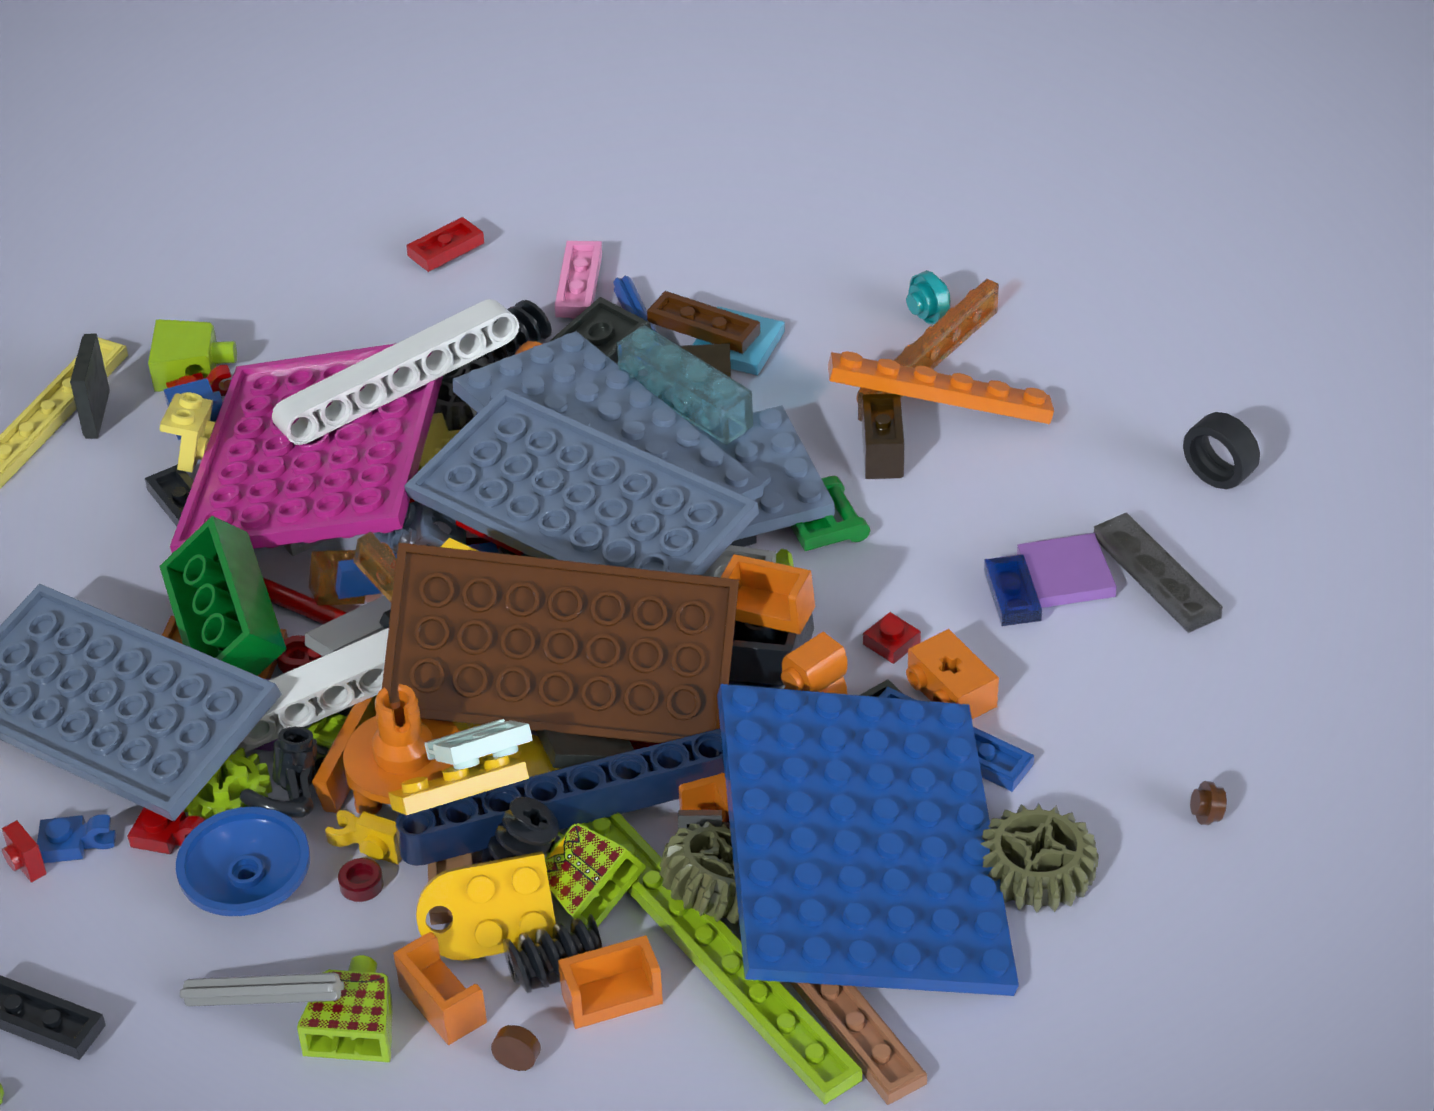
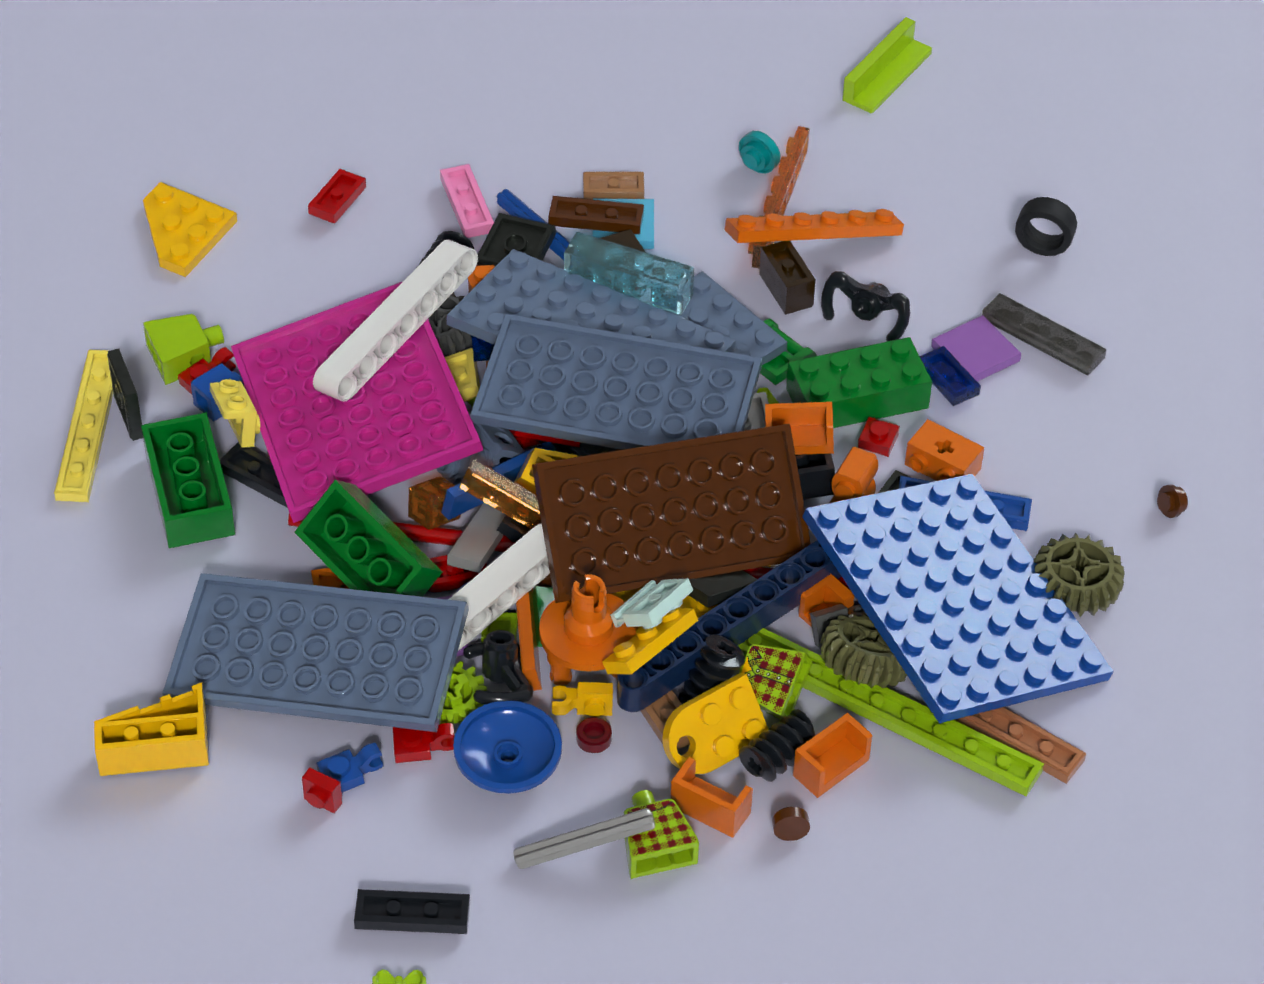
camera: 25 degrees left, 5 degrees up
(97, 488) = (188, 480): none -> green brick
(272, 241) = (184, 227): none -> yellow plate
(748, 297) = (613, 185): none -> medium nougat plate
(895, 571) = (863, 381): none -> green brick
(957, 483) = (867, 301): none -> black piece
(1135, 241) = (885, 68): none -> lime panel

